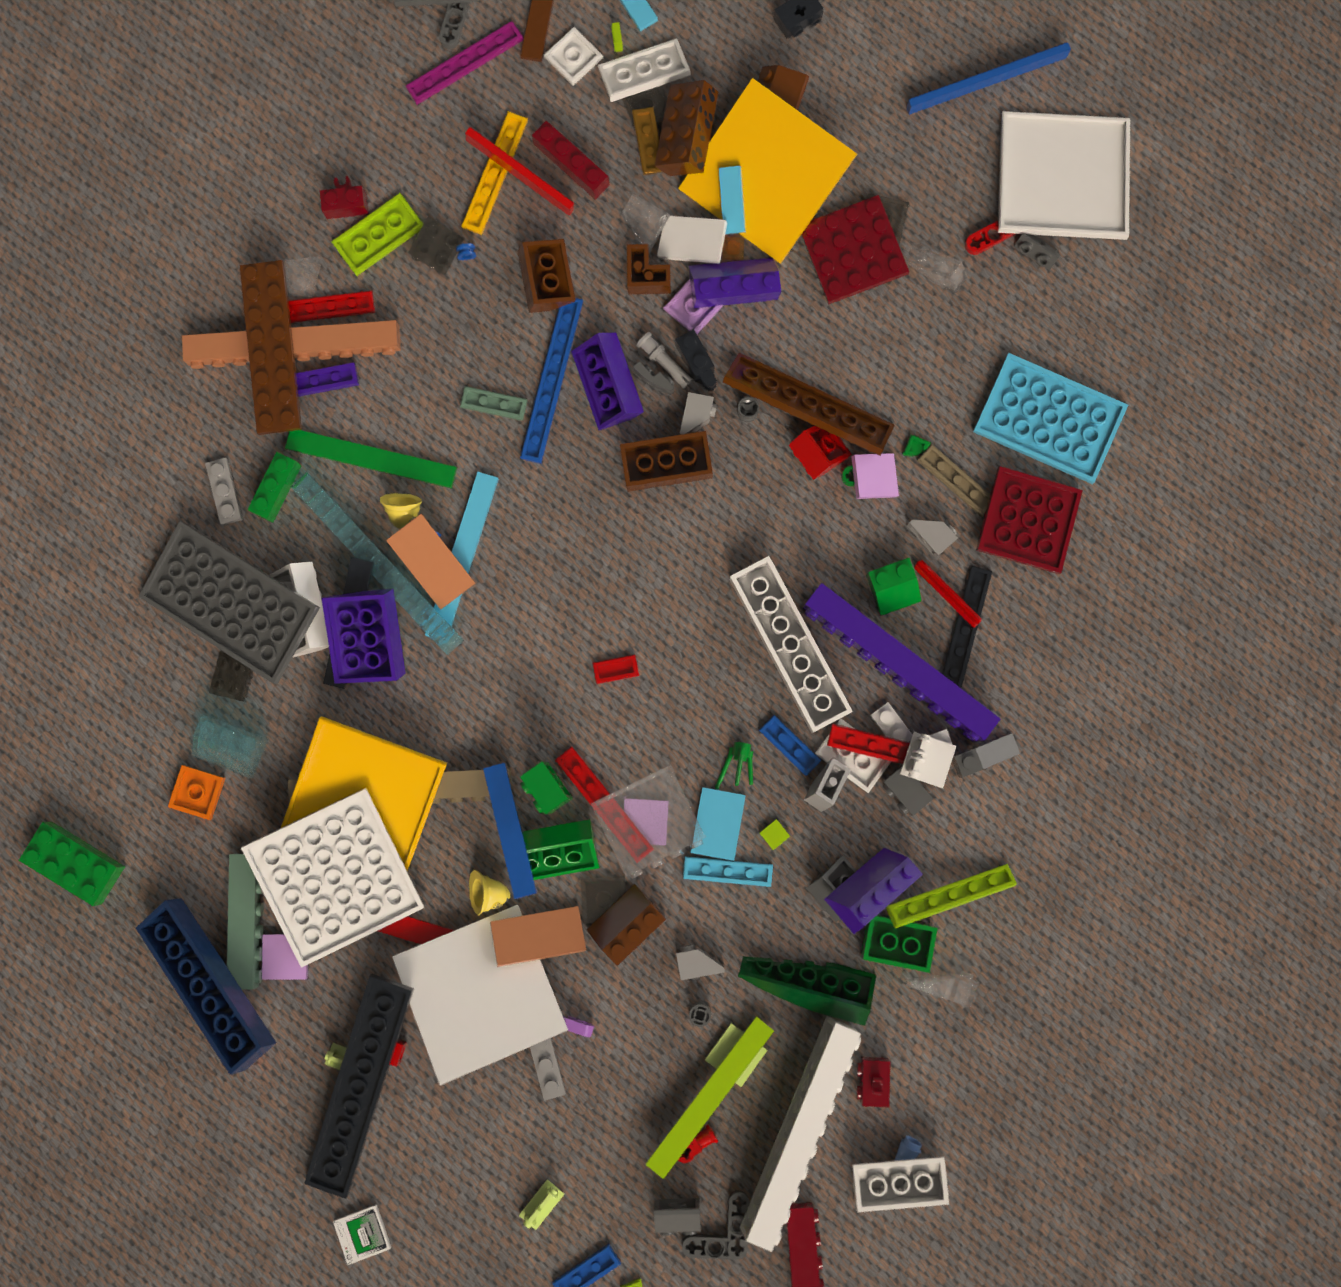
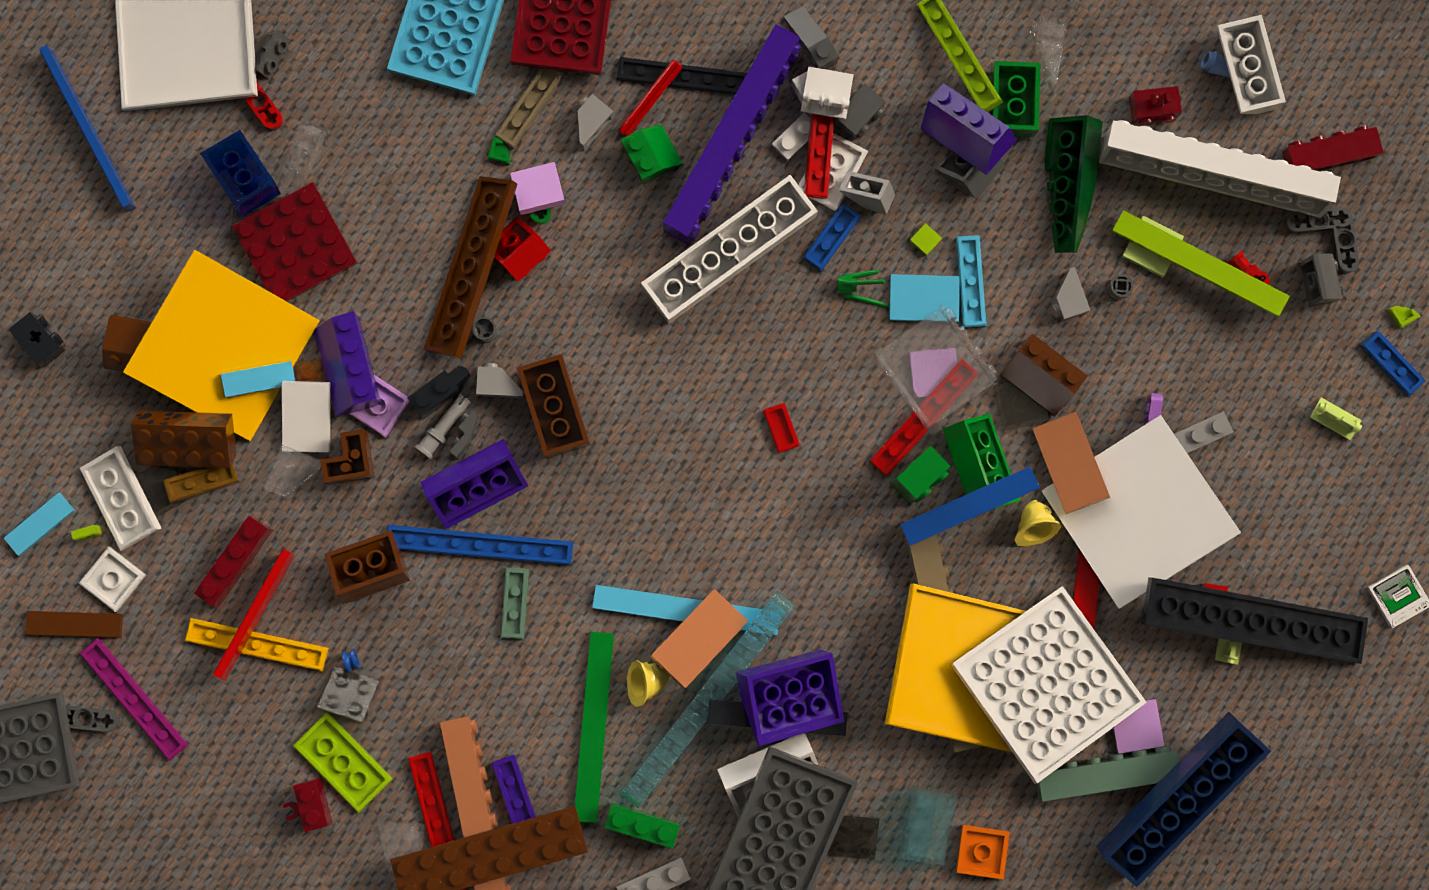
camera: 115 degrees left, 0 degrees up
(925, 206) = (240, 173): none -> clear blue brick

